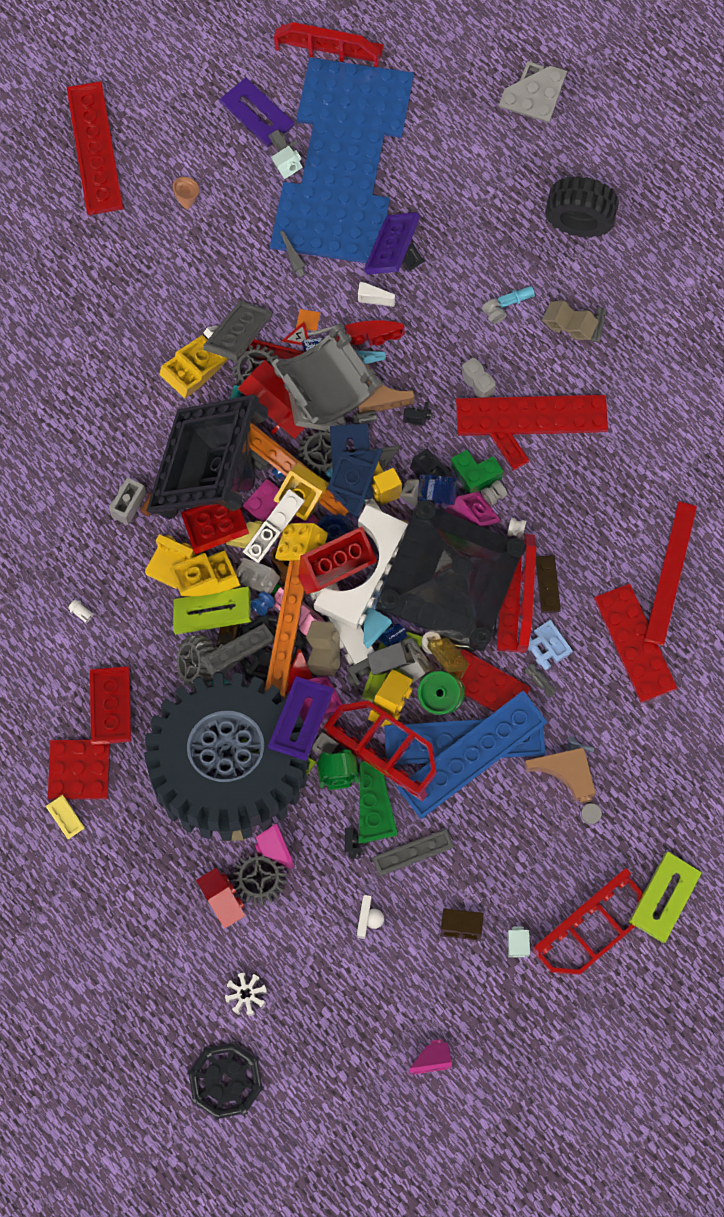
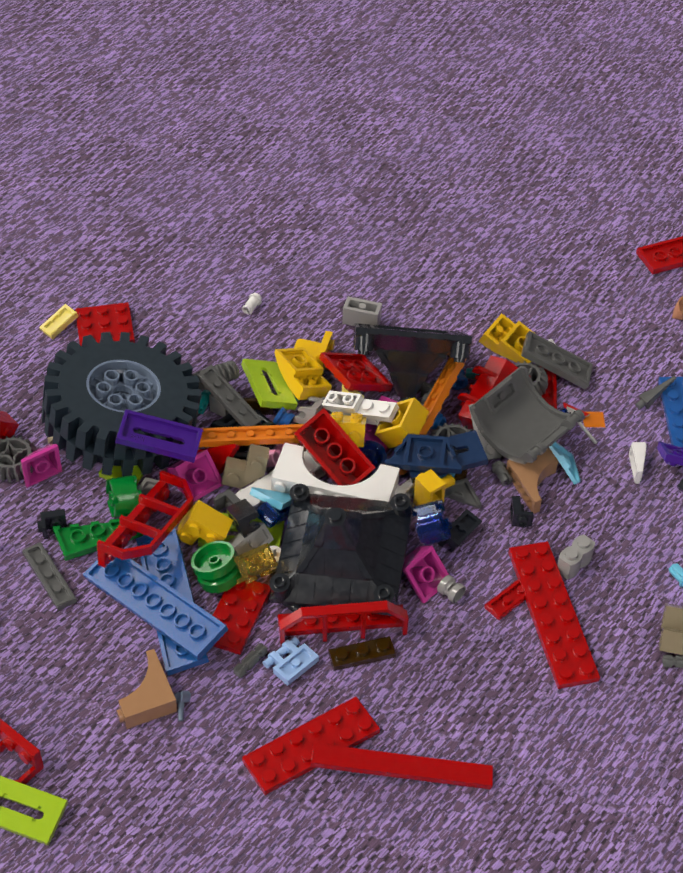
camera: 75 degrees right, 25 degrees down
(110, 705) = (172, 331): red plate -> none
(374, 331) = (596, 462): red slope -> none
(474, 476) = (467, 567): green brick -> none
(494, 312) = (660, 561): light grey wheel -> none
(516, 528) = (417, 613): white wheel -> none
(591, 814) = (106, 726): light grey tile -> none

